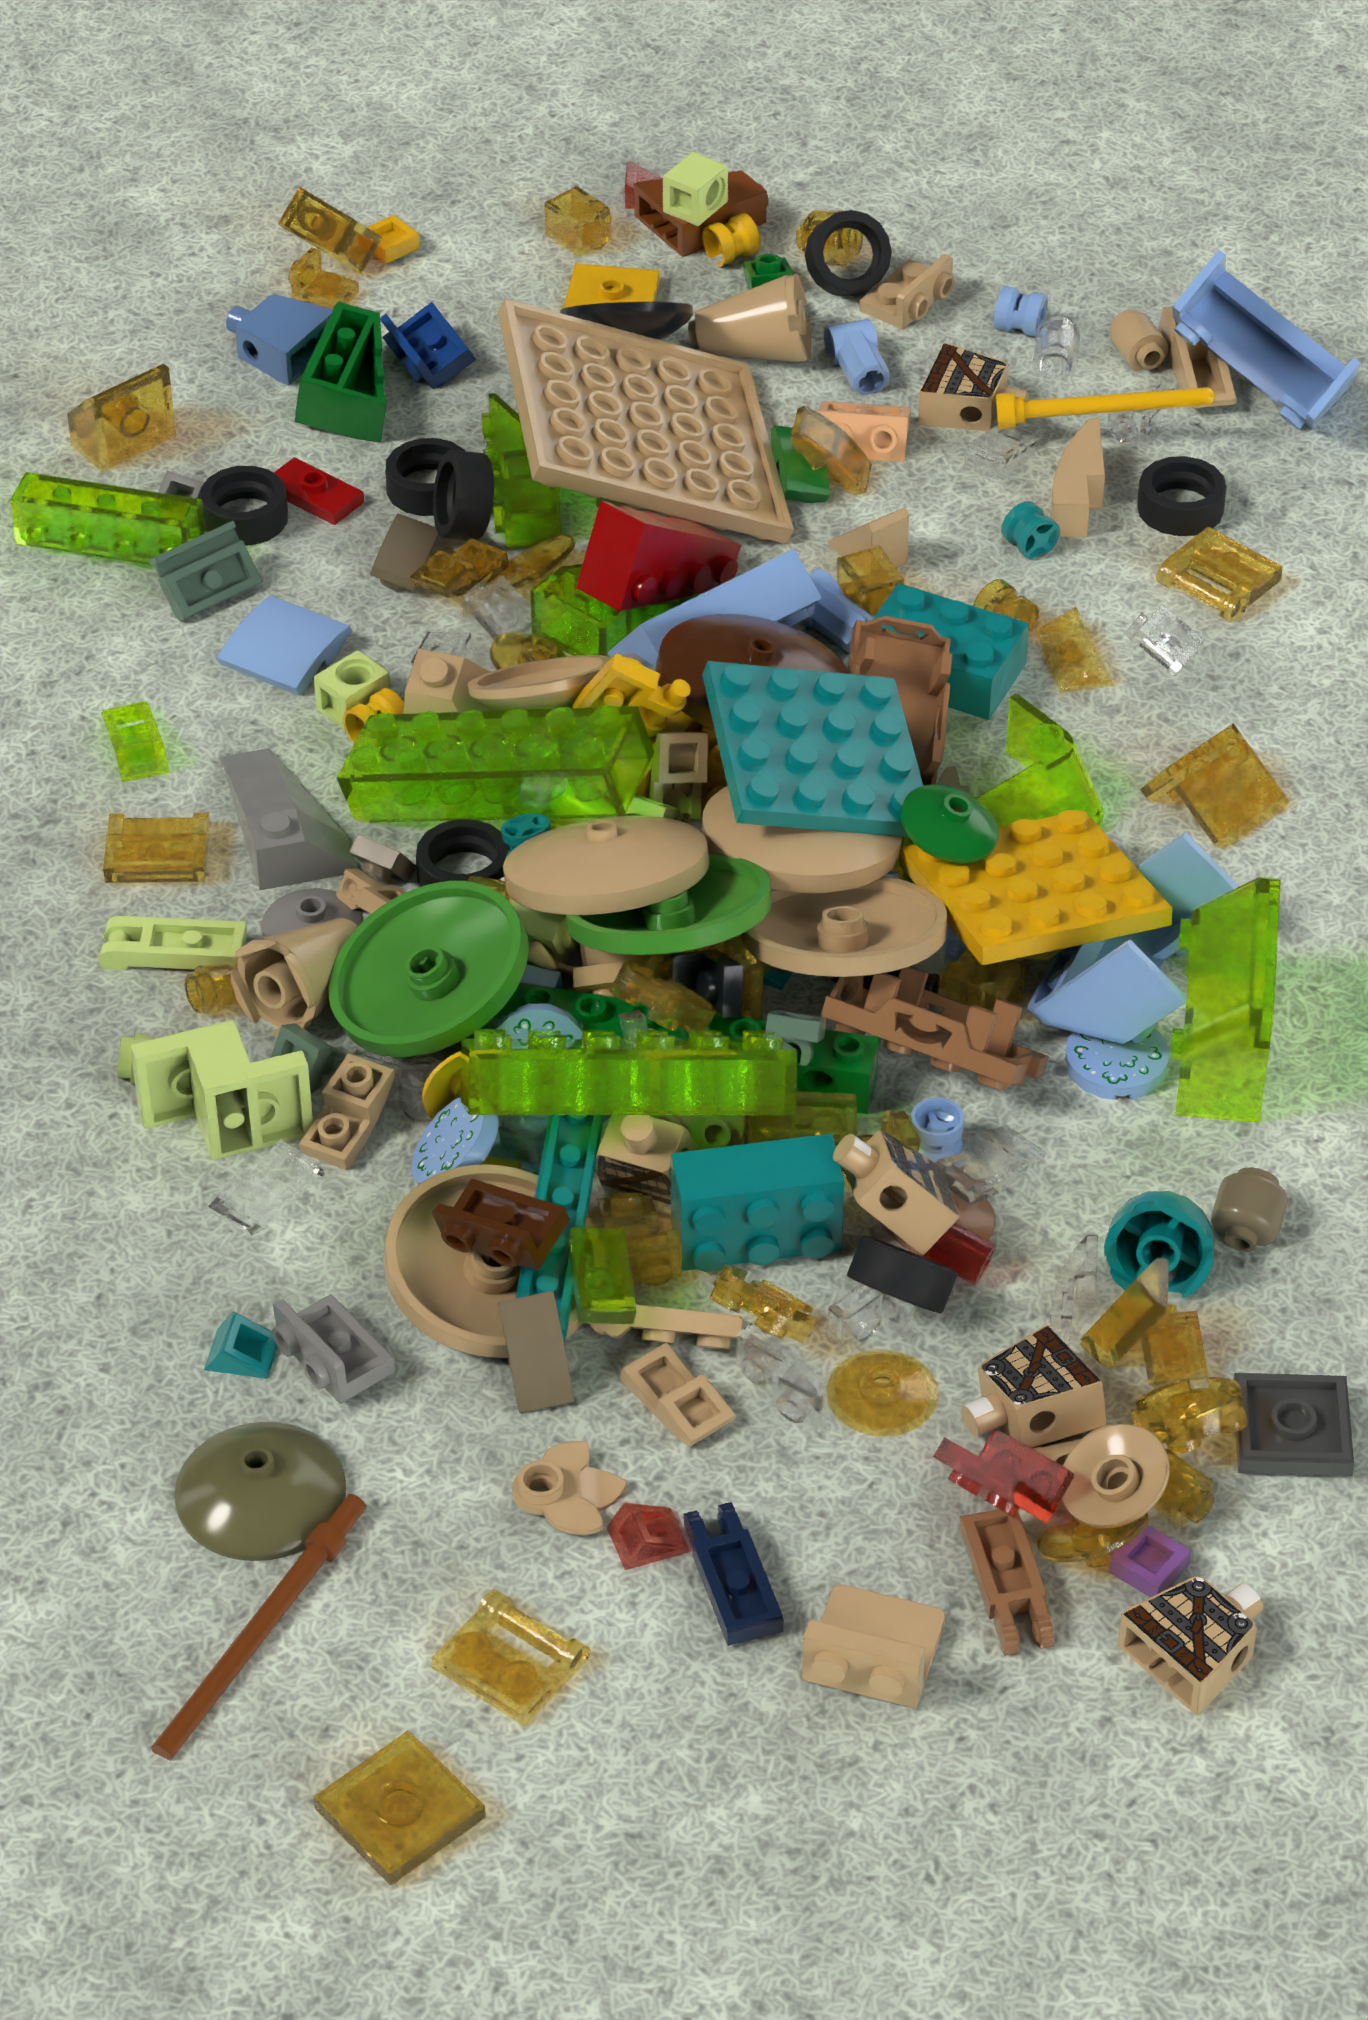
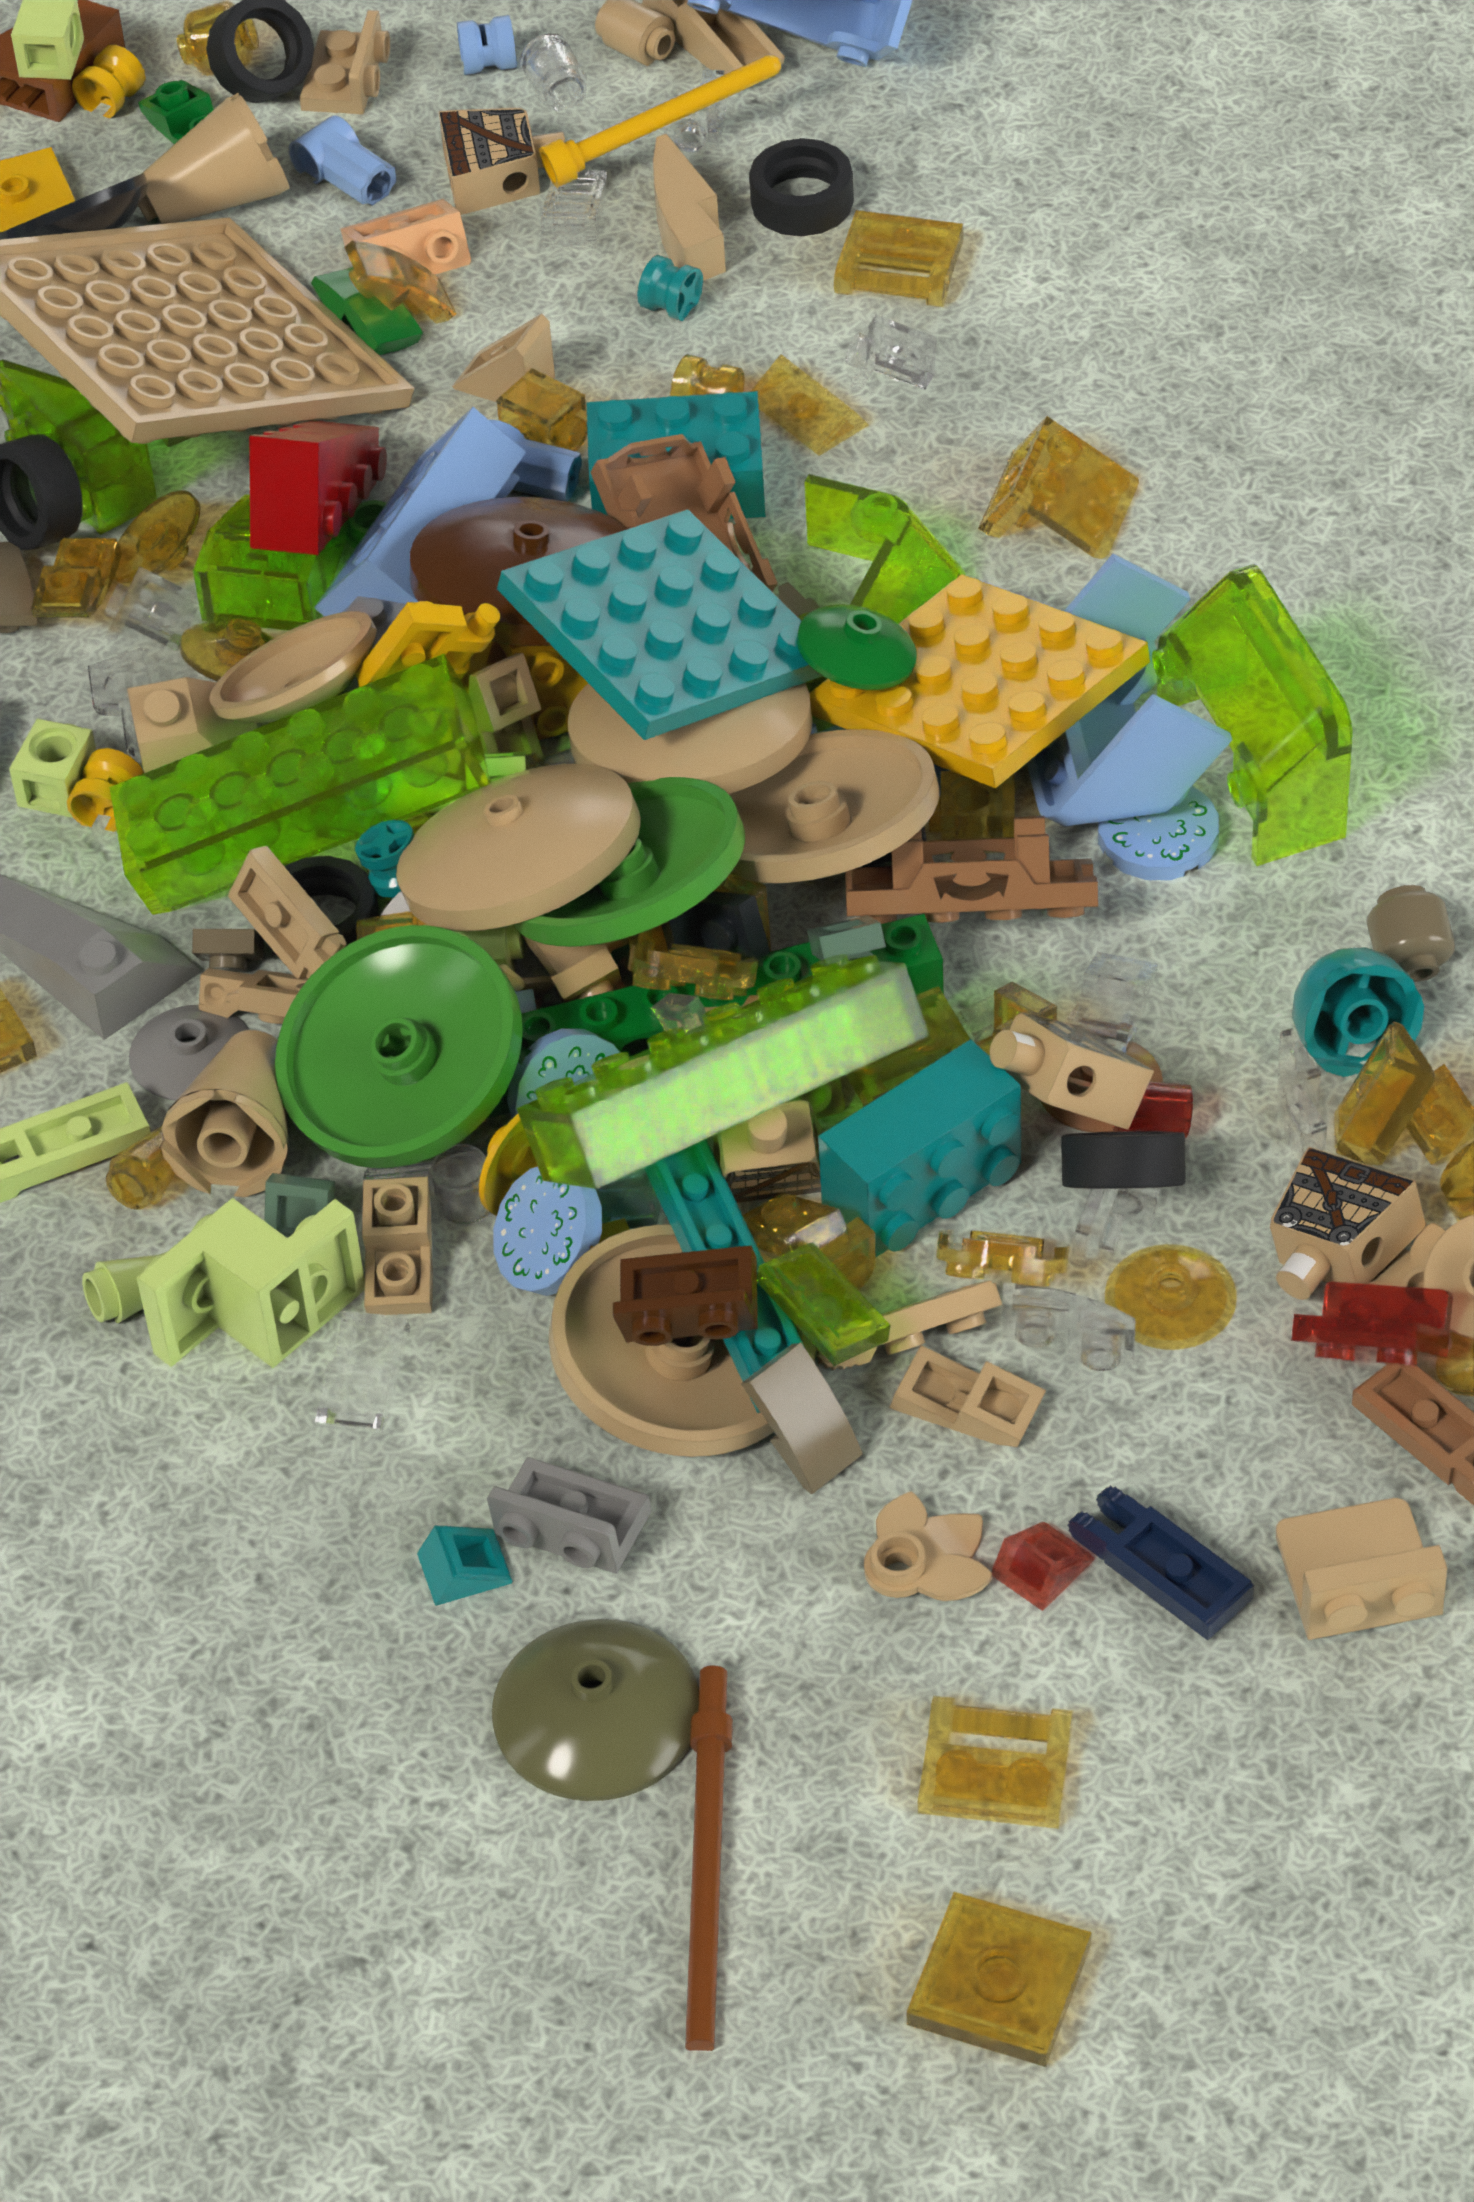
camera: 25 degrees left, 5 degrees up
(421, 842) = (284, 914): none -> tan hinge
(939, 1127) = (1046, 976): light blue wheel -> none

